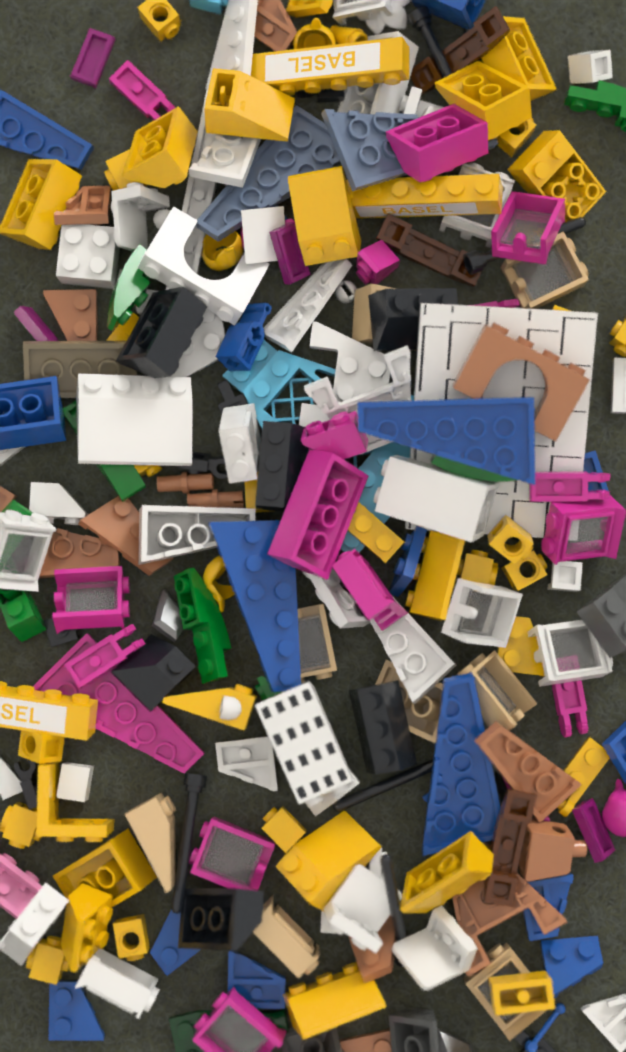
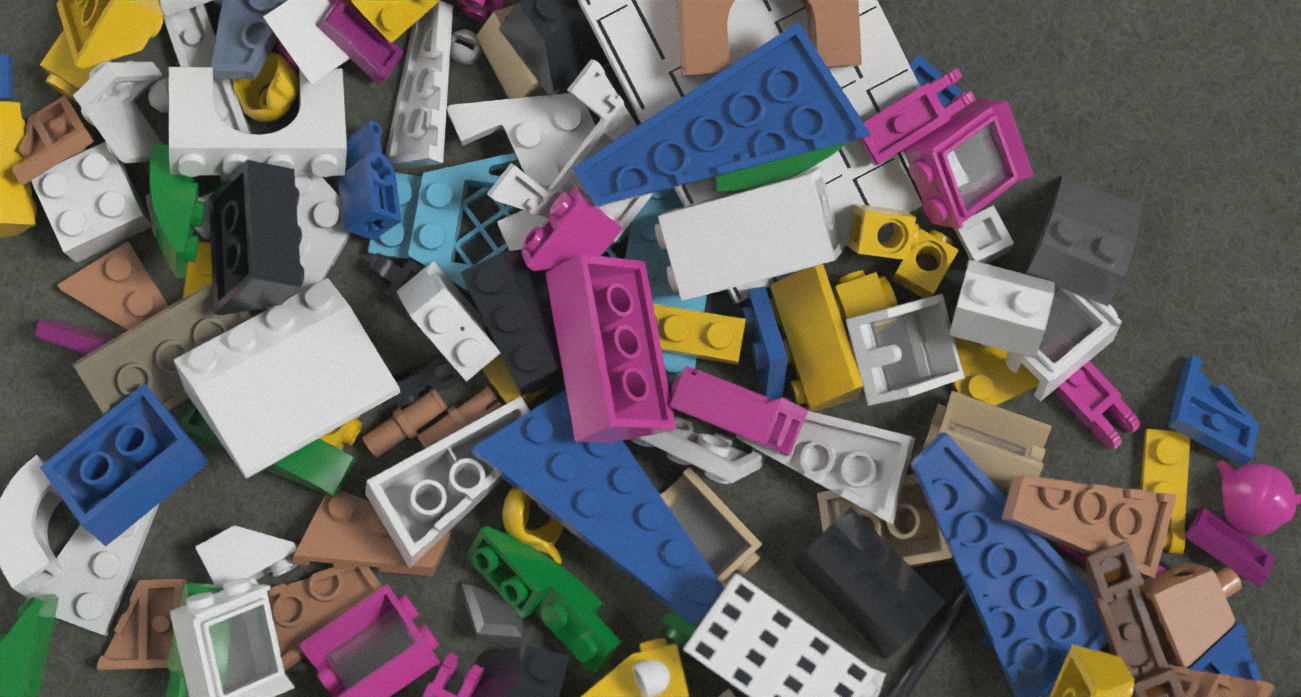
camera: 30 degrees left, 5 degrees down
(550, 624) = (1002, 309): none -> white slope

